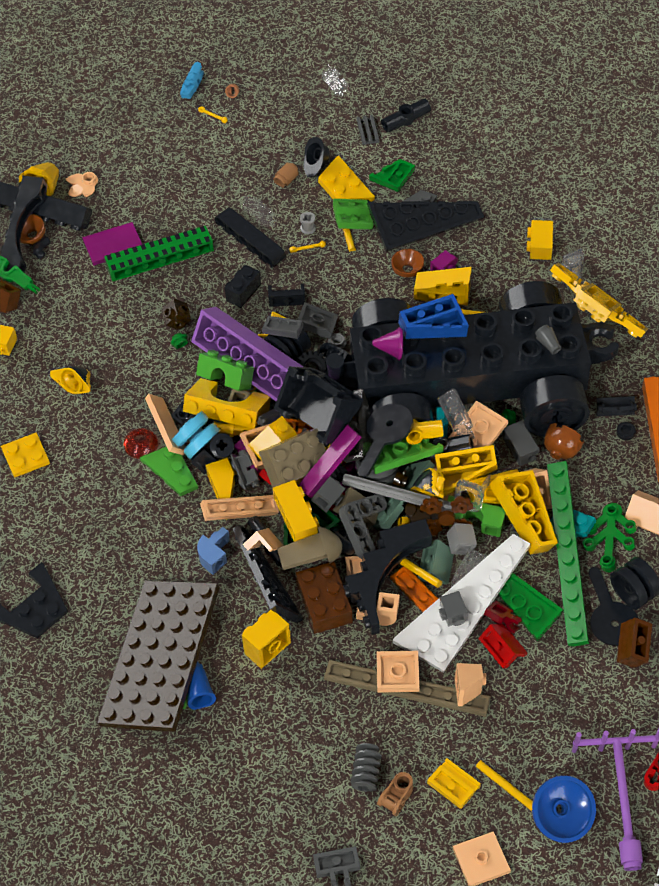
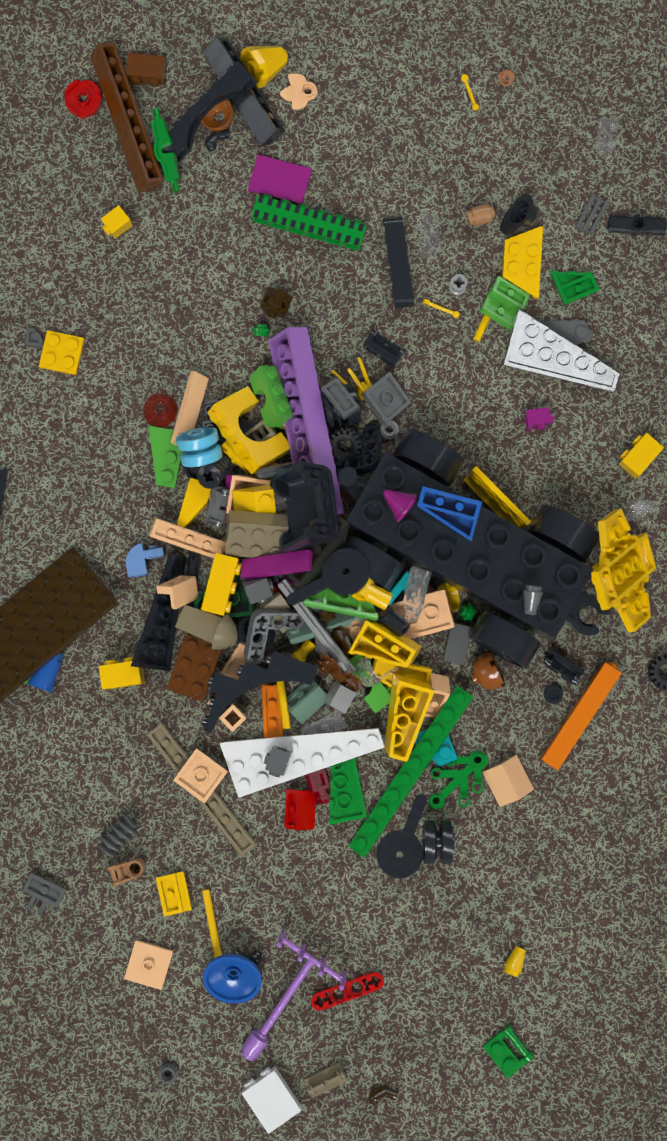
camera: 30 degrees right, 30 degrees up
(72, 379) = (149, 306): yellow hat -> none
(192, 81) = (478, 39): dark azure hinge -> none
(242, 286) = (352, 313): black brick -> none
(407, 257) = (515, 386): dark orange piece -> none
(429, 483) = (341, 644): yellow hat -> none
(441, 283) = (518, 441): yellow wedge -> none
(468, 682) = (245, 825): light nougat slope -> none
(634, 642) = (395, 888): reddish brown brick -> none

